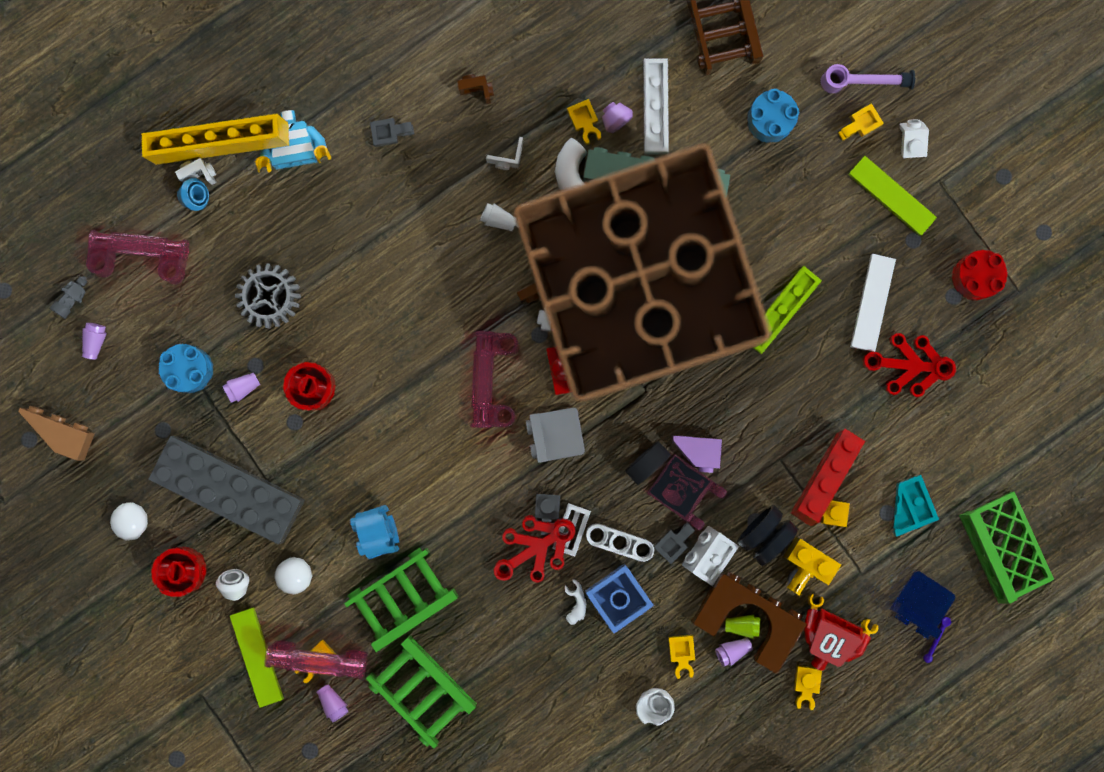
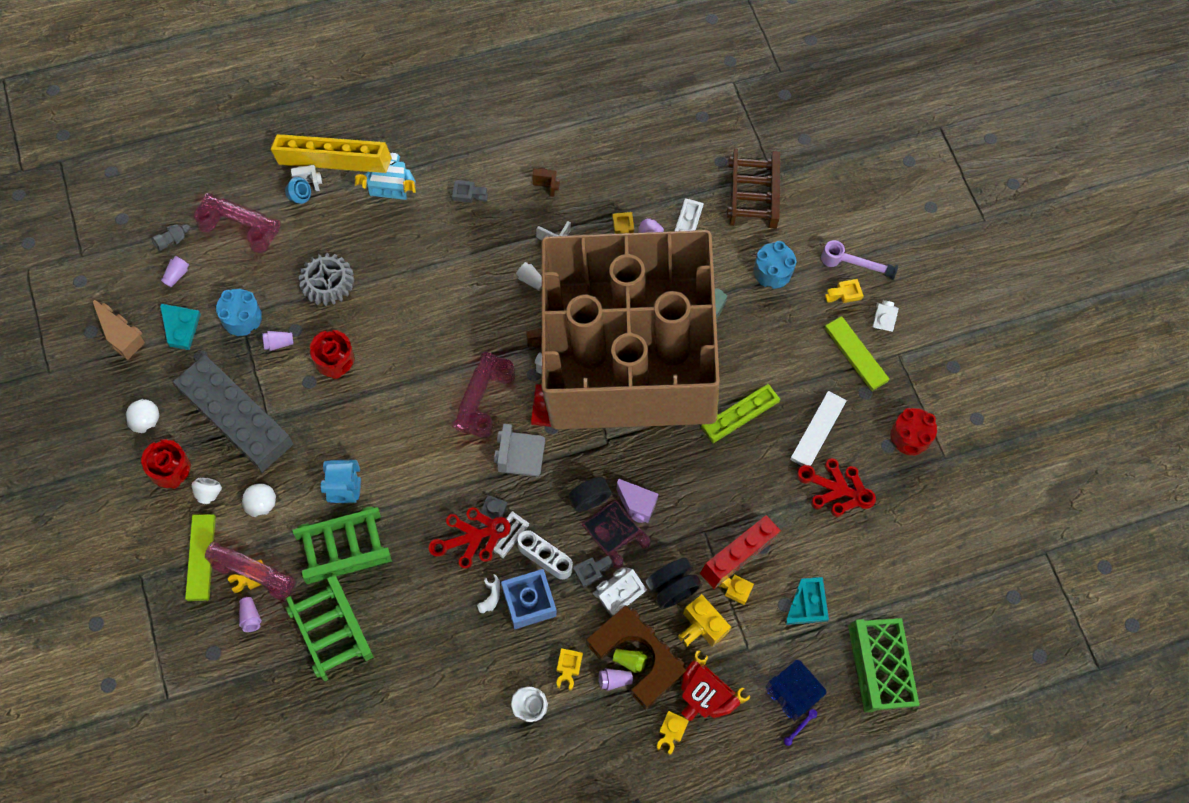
camera: 15 degrees right, 20 degrees down
(125, 402) = (179, 325): none -> teal wing

